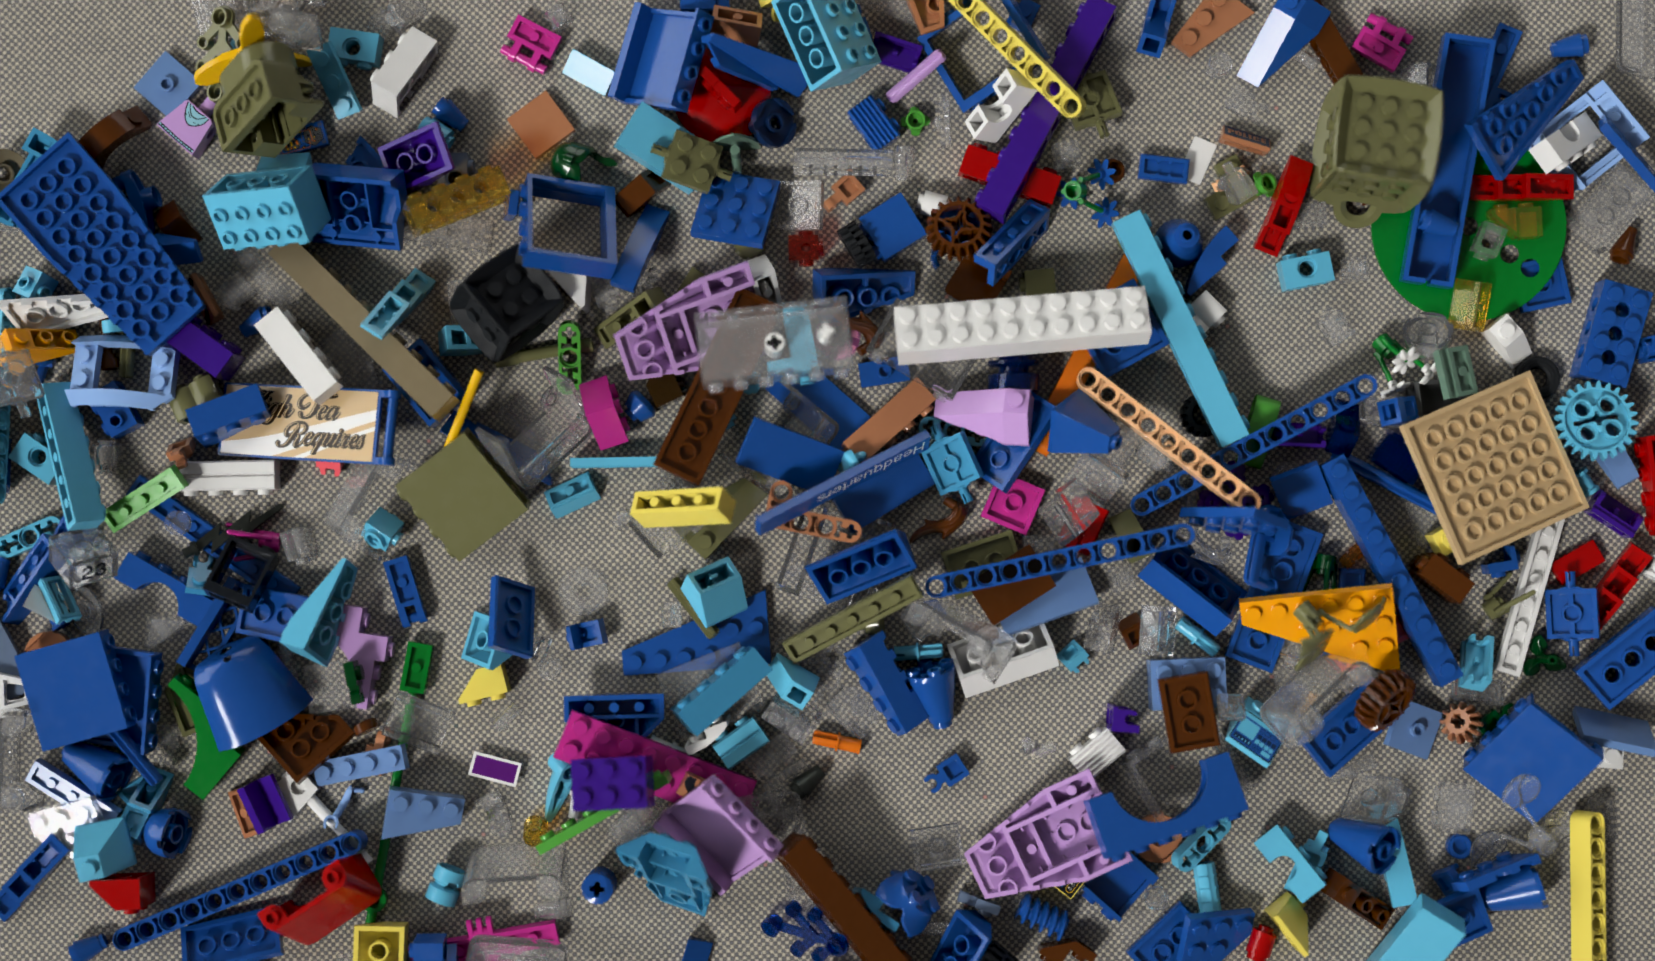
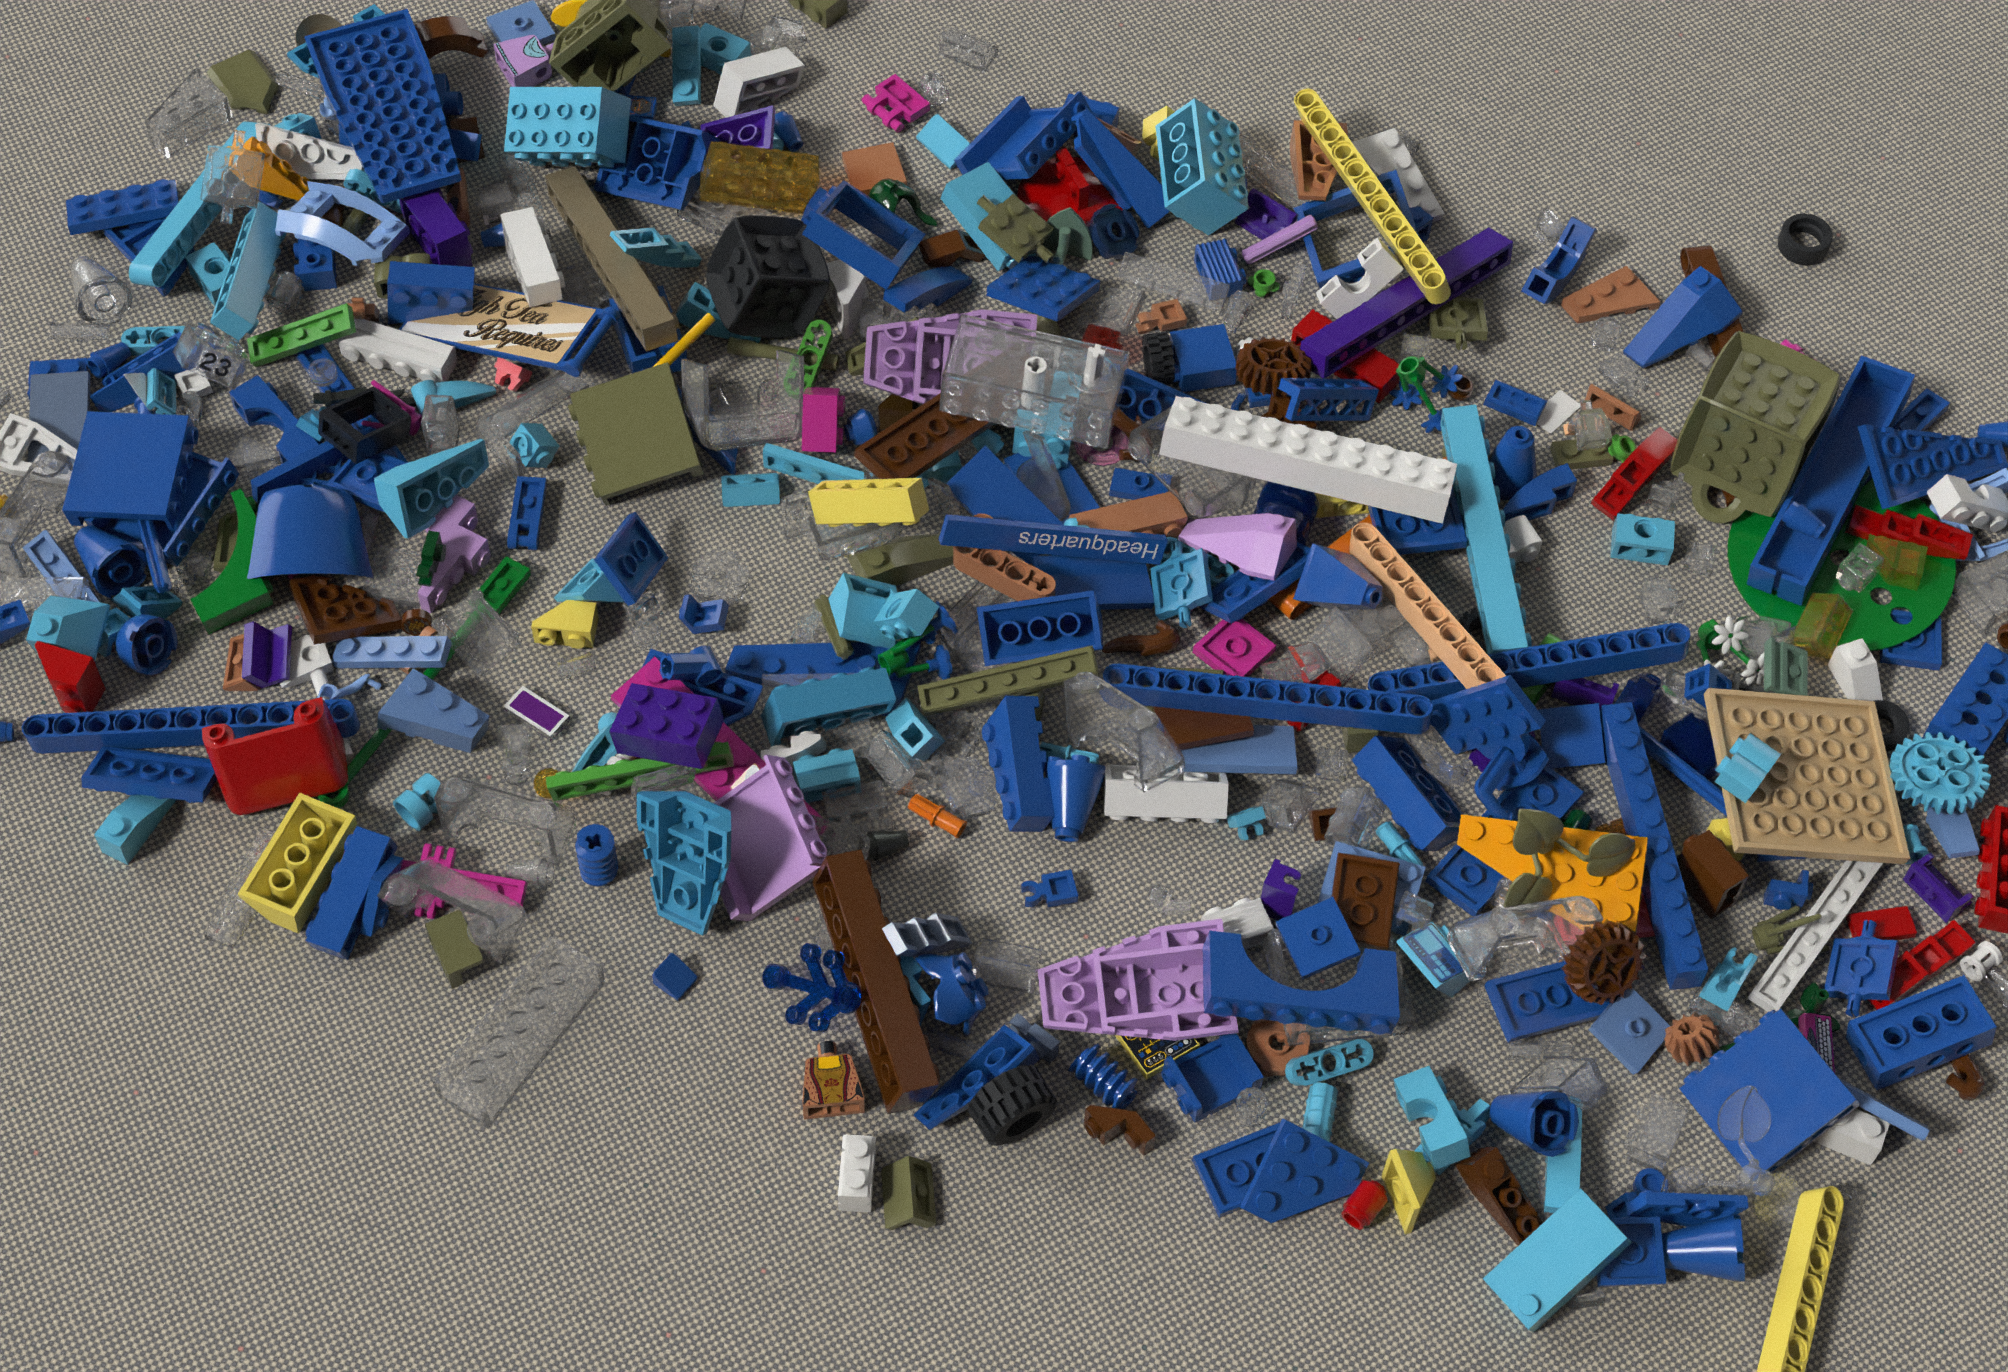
camera: 10 degrees right, 30 degrees down
(288, 504) = (462, 391): none -> medium azure piece
(605, 709) = (696, 664): none -> blue piece
(752, 596) = (905, 614): none -> medium azure brick
(755, 627) = (897, 657): none -> plant
(875, 866) = (930, 935): none -> sand blue slope
(1166, 760) = (1318, 938): none -> blue plate
(1453, 495) = (1747, 767): none -> medium azure brick
(1553, 690) = (1818, 1032): none -> slope

